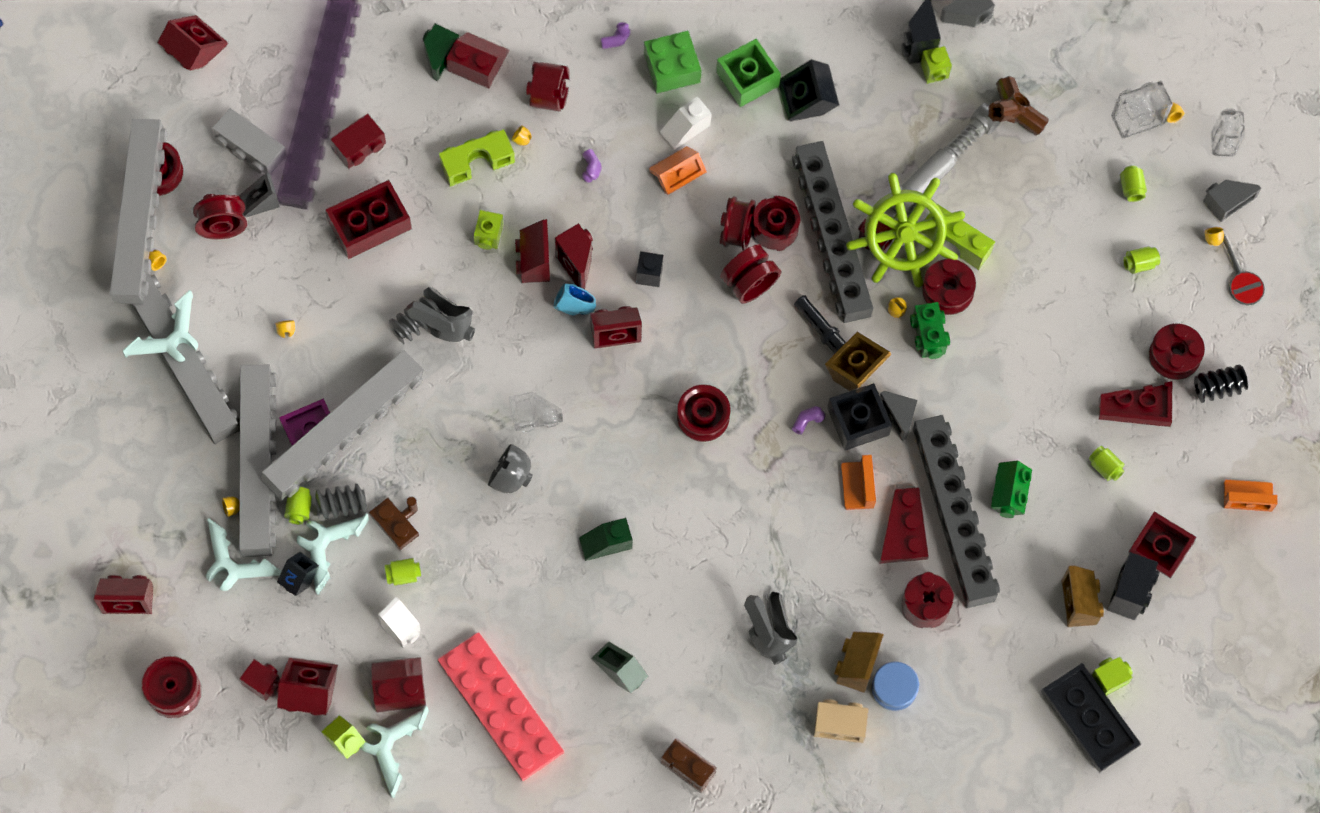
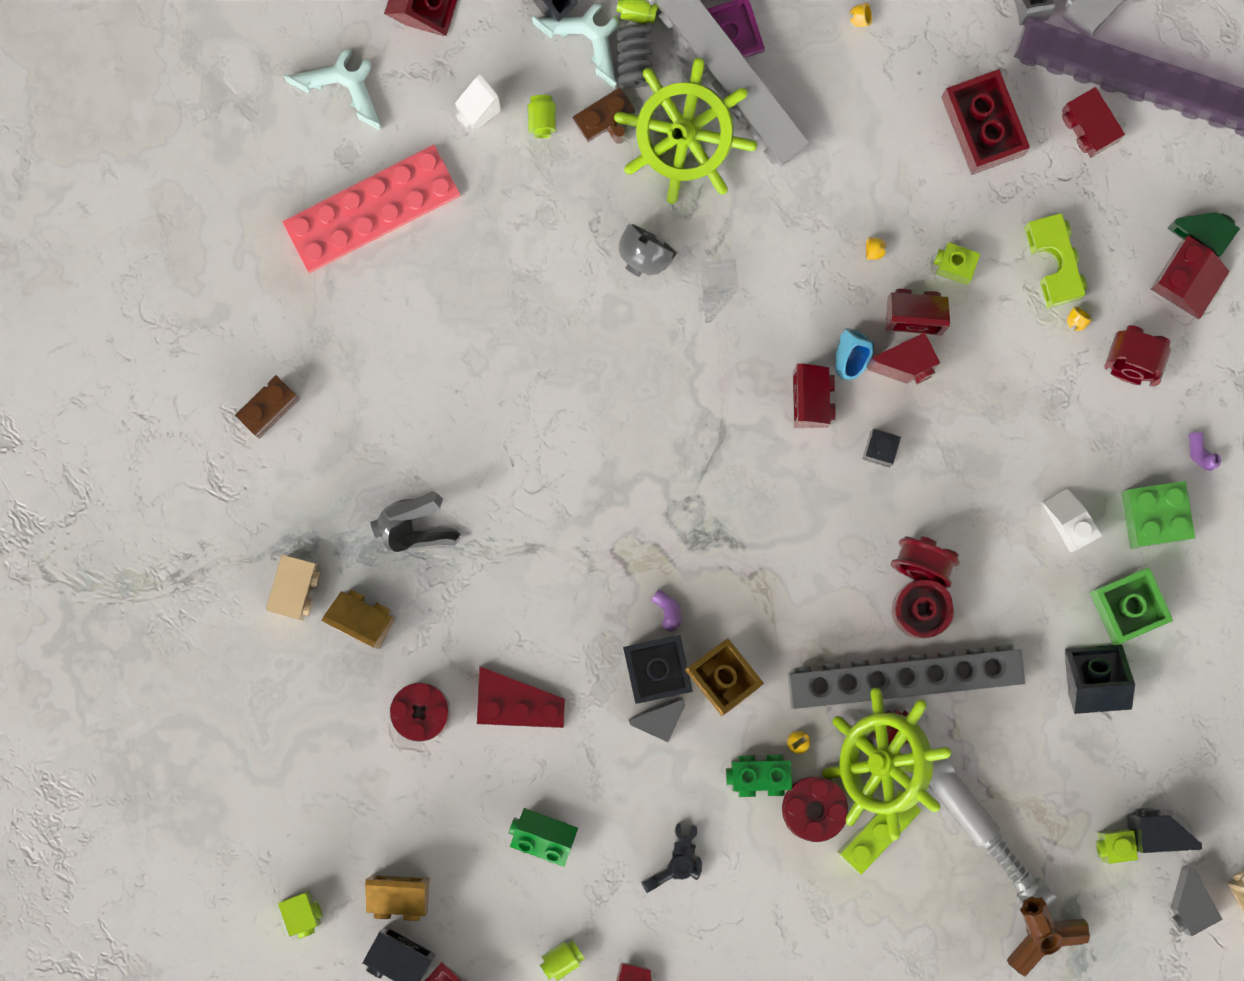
camera: 100 degrees right, 15 degrees up
(343, 737) = (356, 29): lime brick -> none
(398, 685) = (411, 97): dark red slope -> none
(404, 449) = (685, 131): none -> lime piece
(405, 326) = (850, 165): dark grey piece -> none
(450, 328) = (833, 210): dark grey piece -> none
(483, 295) = (875, 248): none -> yellow hinge
(593, 168) = (1027, 401): medium lavender arm -> none
(606, 539) = (548, 352): dark green slope -> none
(620, 667) = (394, 346): slope -> none
(678, 169) = (1012, 502): orange panel -> none
(700, 427) = (688, 466): dark red wheel -> none
(750, 274) = (857, 565): dark red wheel -> none
(829, 335) = (771, 651): black pin -> none
(858, 484) = (578, 656): orange panel -> none
(895, 686) = (326, 658): medium blue head -> none
(973, 592) = (423, 769): dark grey brick -> none
(1010, 382) = (681, 864): none -> black piece
(1091, 717) = (255, 879): black plate -> none

